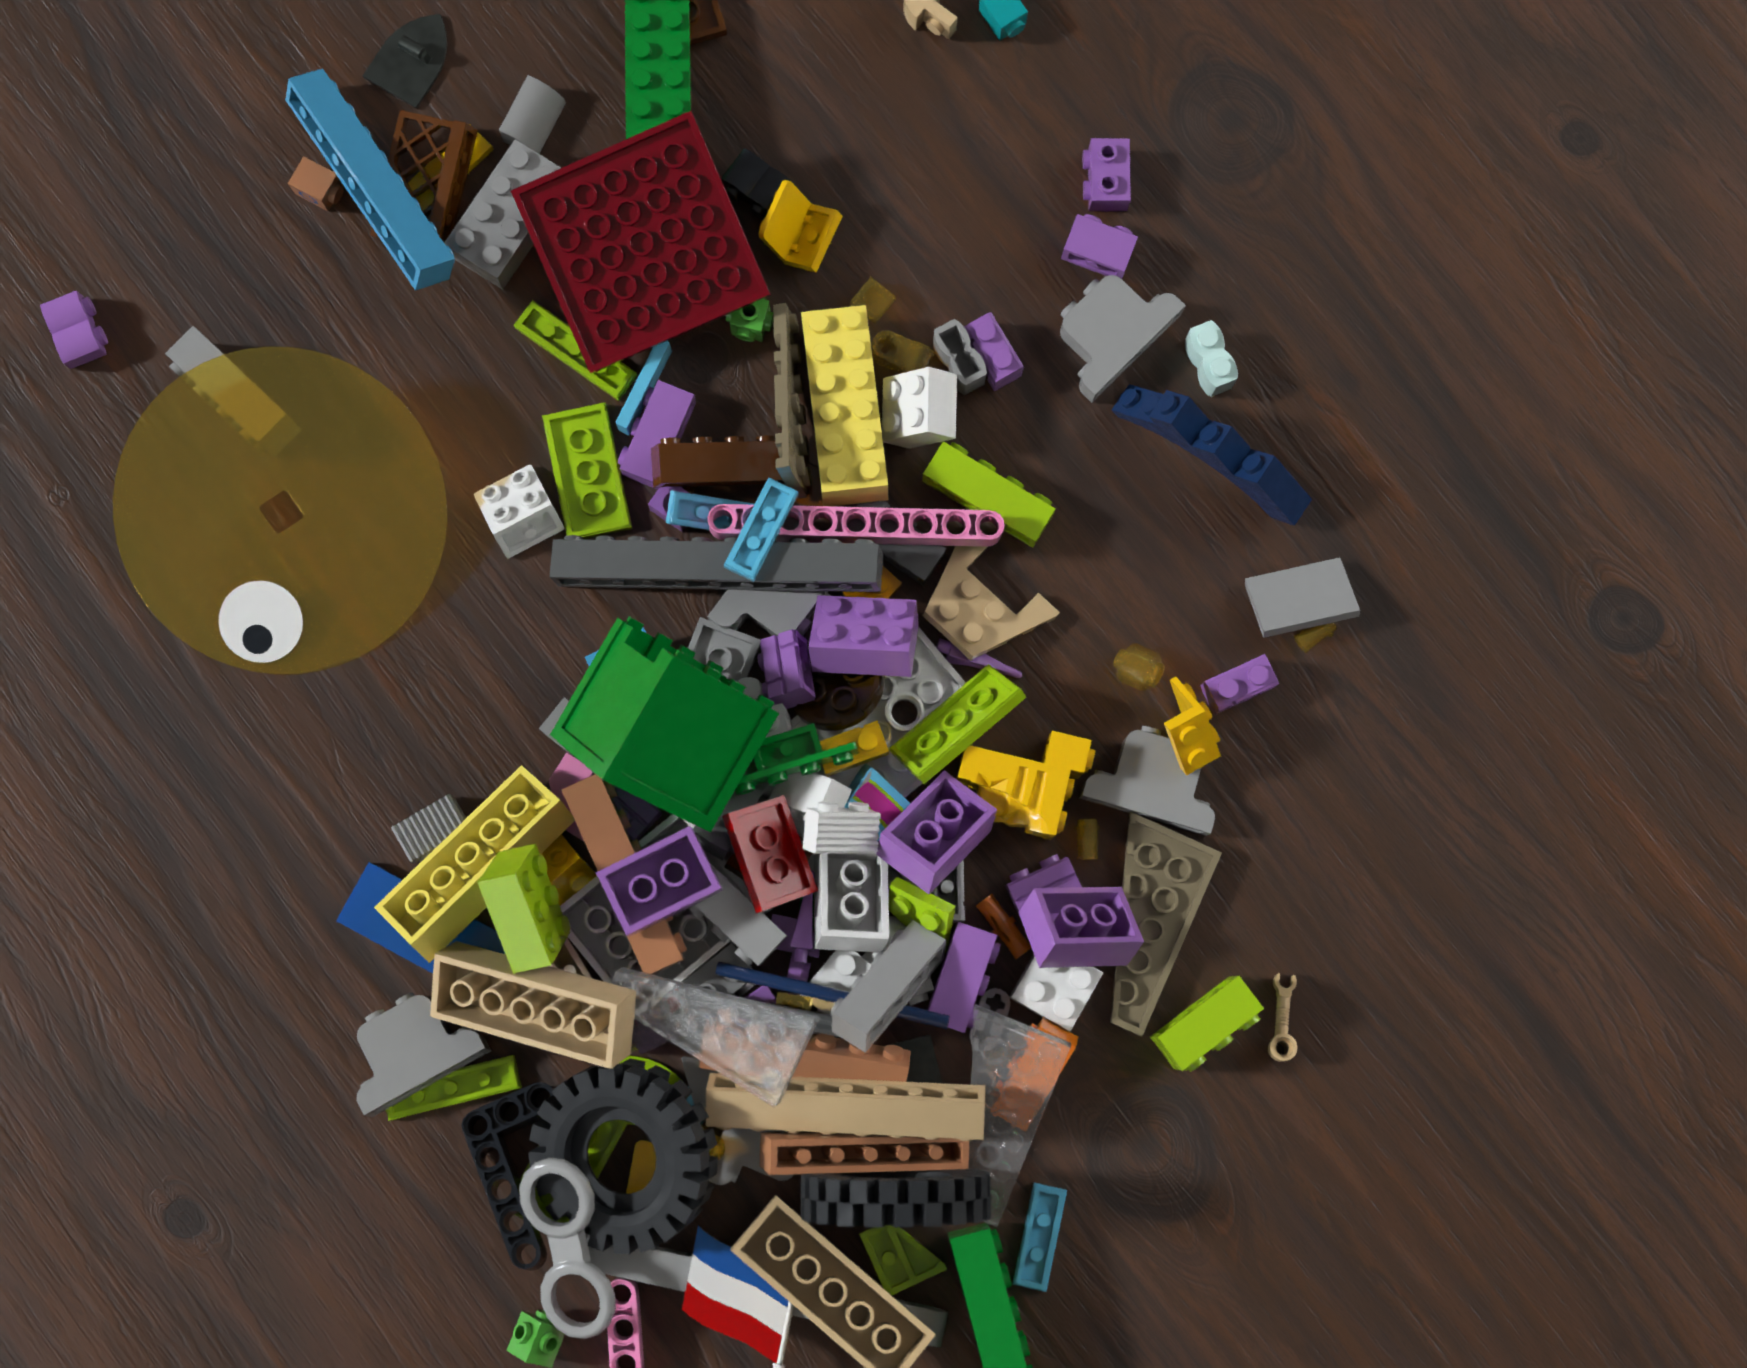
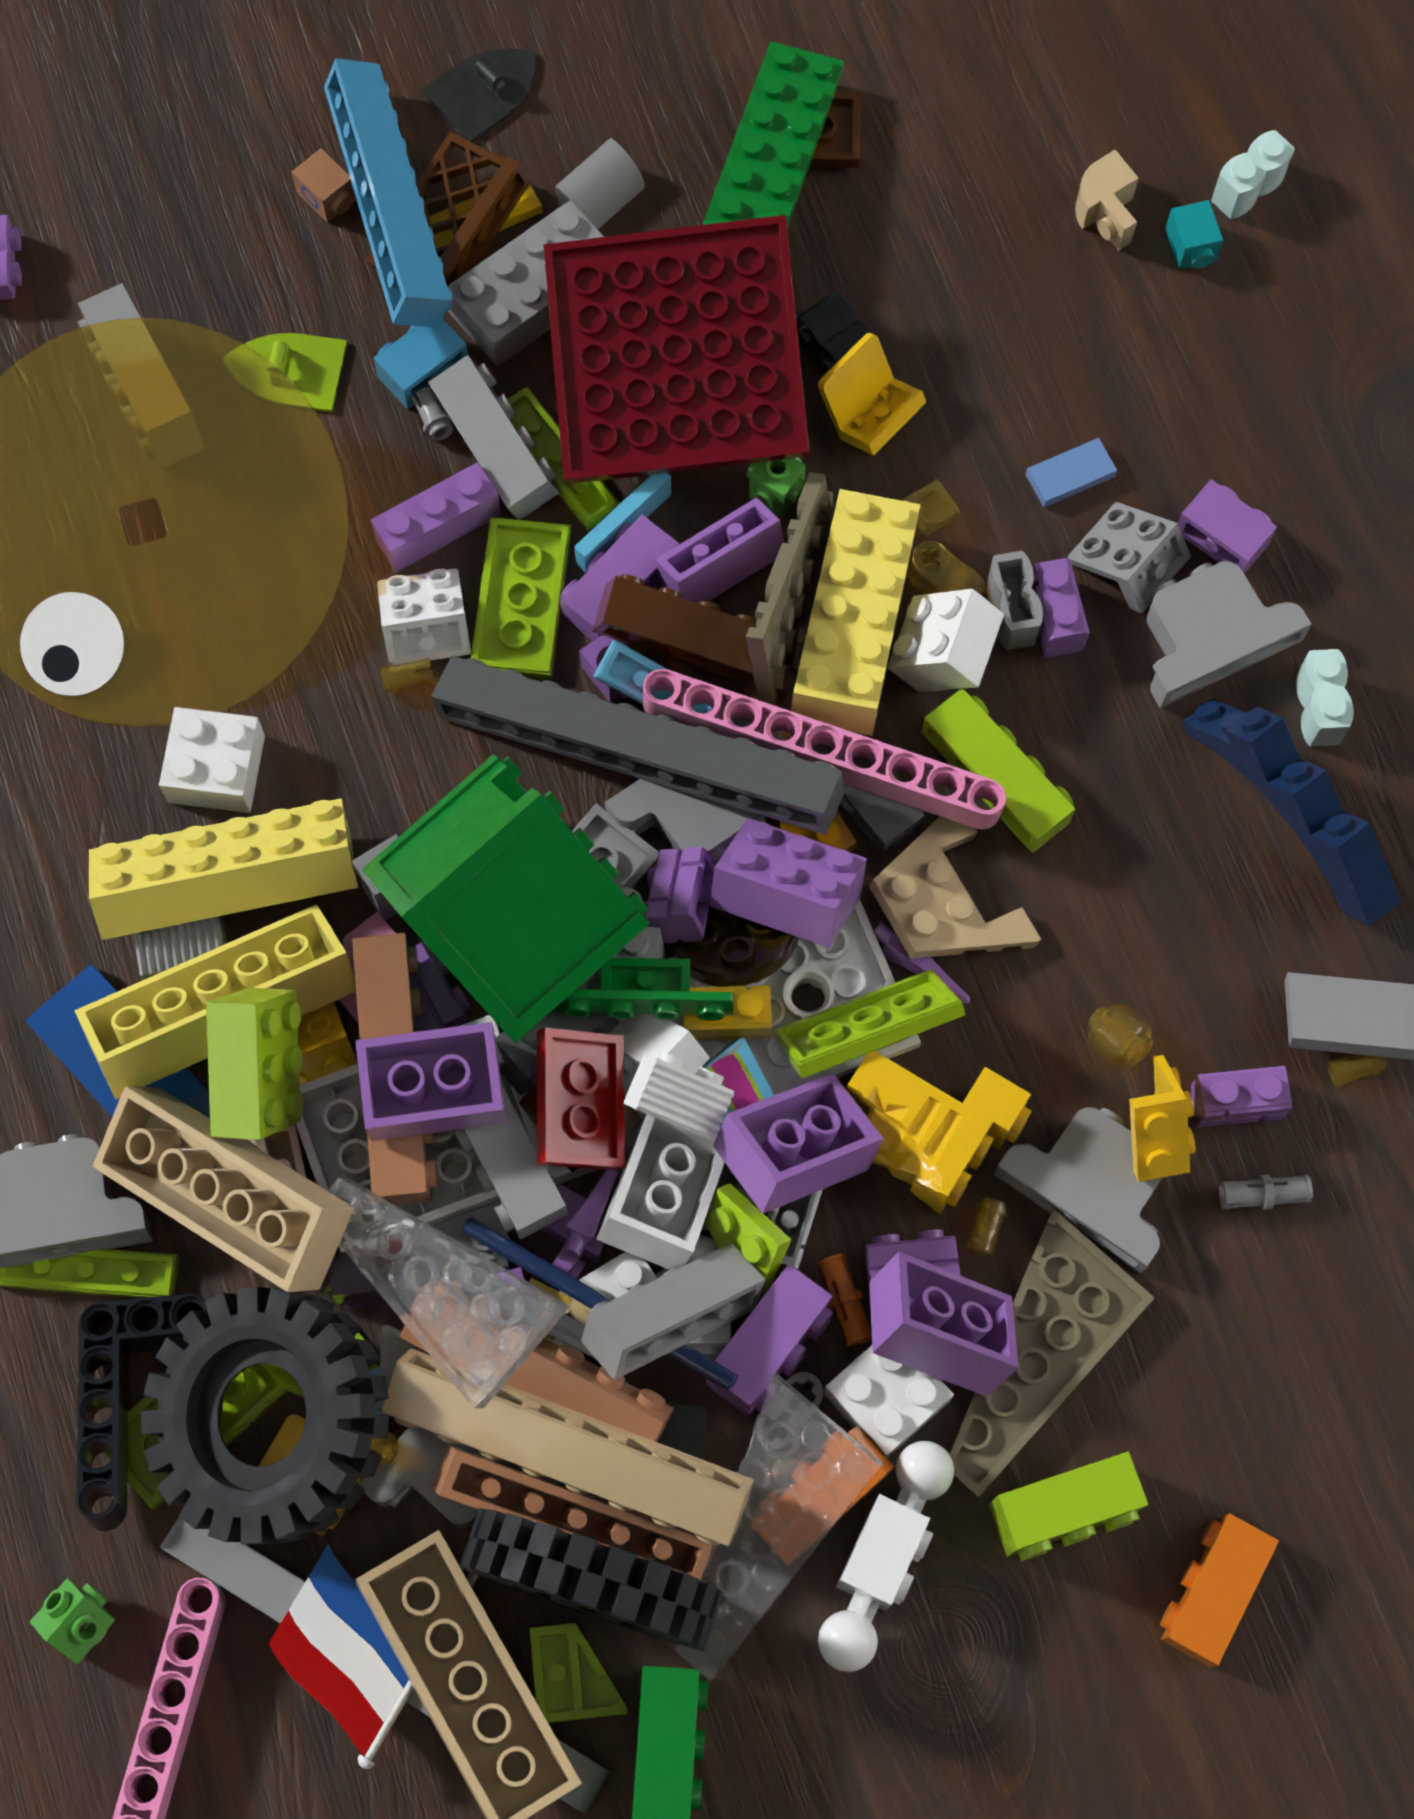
camera: 20 degrees right, 10 degrees down
(350, 336) = (308, 361): none -> lime shield
(401, 677) = (212, 759): none -> white brick
(441, 761) = (221, 868): none -> light yellow brick
(443, 308) = (417, 359): none -> dark azure brick
(468, 346) = (436, 422): none -> light grey pin
(501, 430) = (436, 517): none -> medium lavender brick
(521, 564) = (406, 675): none -> clear yellow pin
(522, 351) = (494, 438): none -> light grey brick
(567, 1248) = (152, 1510): light grey bar -> none
(728, 392) = (722, 553): none -> medium lavender brick
(761, 529) = (704, 712): medium azure tile -> none
(969, 236) = (1071, 472): none -> medium blue tile
(1034, 287) = (1134, 551): none -> light grey bracket
(1039, 1237) = (762, 1715): medium azure tile -> none
(1090, 1101) = (882, 1554): none -> white brick
(1107, 174) = (1263, 451): medium lavender brick -> none
(1277, 748) = (1265, 1192): none -> light grey pin
(1281, 1028) = (1161, 1557): tan brick -> none
(1327, 1044) = (1217, 1589): none -> orange brick

